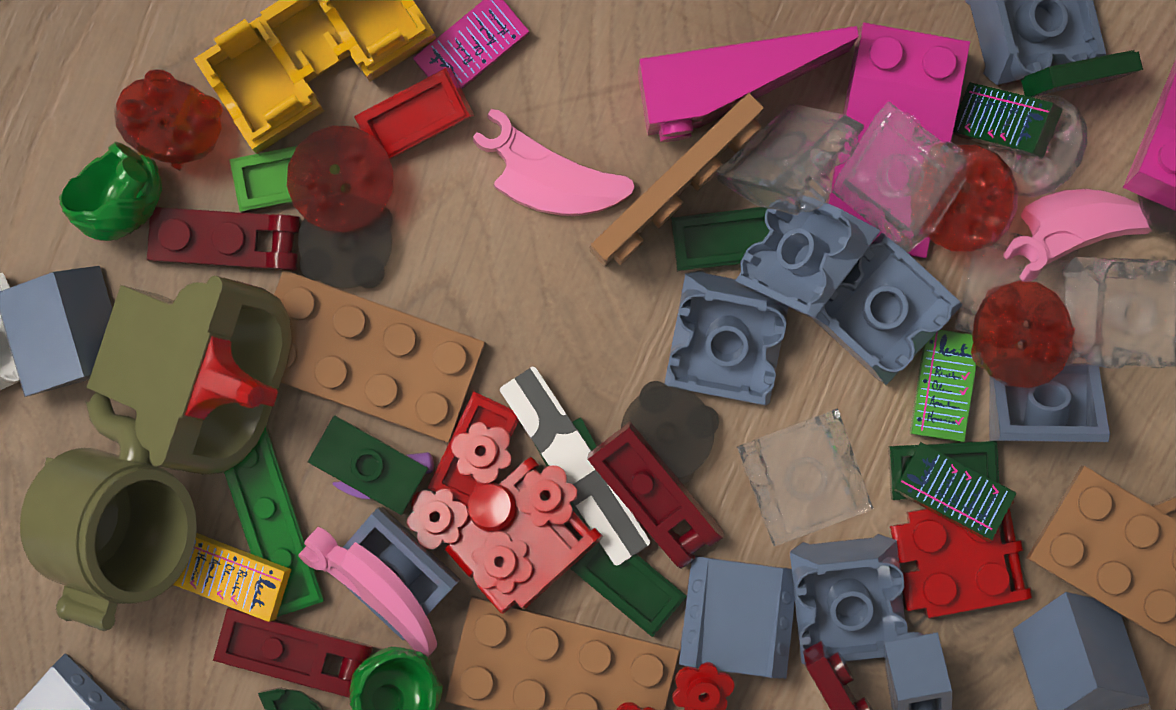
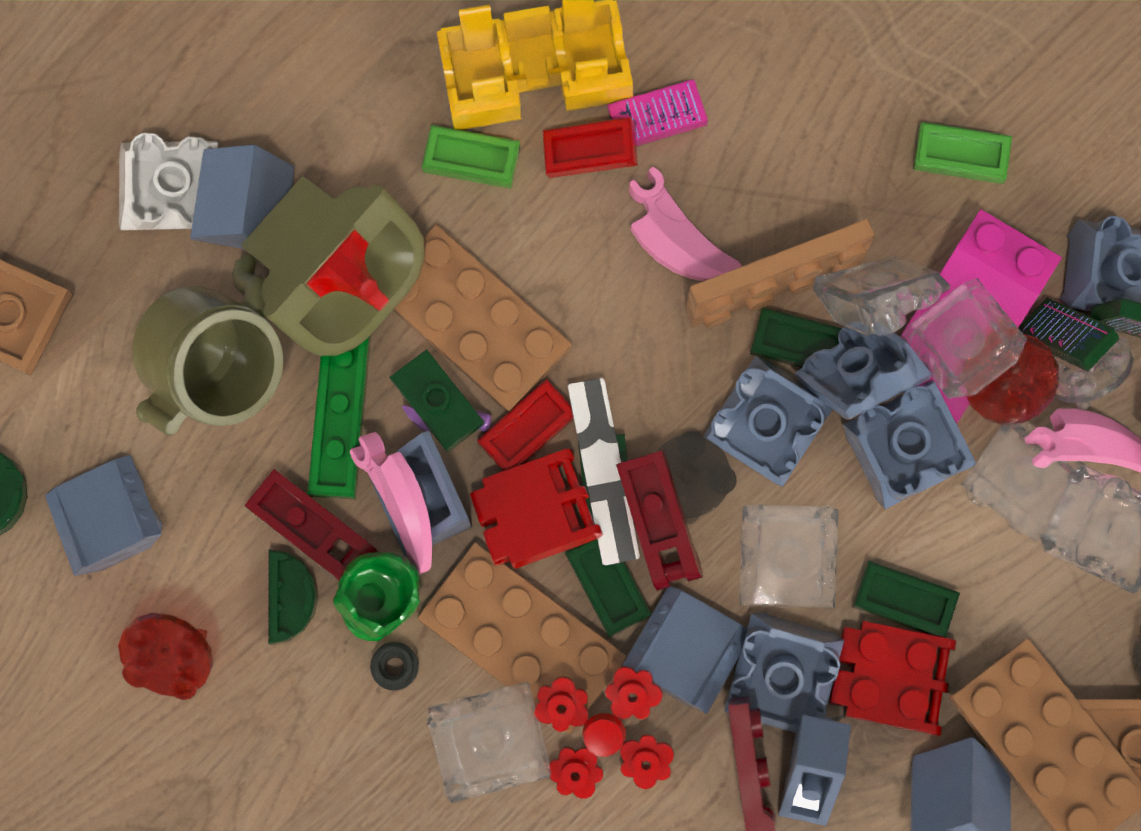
camera: 25 degrees right, 10 degrees down
(112, 194) = (328, 112): green hair -> none
(168, 119) = (396, 73): clear red plate -> none
(221, 238) = (404, 182): dark red plate -> none
(235, 578) = (289, 446): yellow tile -> none
(349, 257) = (495, 224): clear smoke piece -> none
(361, 164) = (532, 166): clear red plate -> none
(492, 507) = (522, 474): plant -> none
(705, 84) = (825, 199): dark pink slope -> none
(944, 387) = (933, 531): bright green tile -> none
(955, 492) = (910, 617): dark green tile -> none
(1001, 326) = (1001, 493): clear red plate -> none
(1058, 411) = (1014, 578): sand blue slope -> none

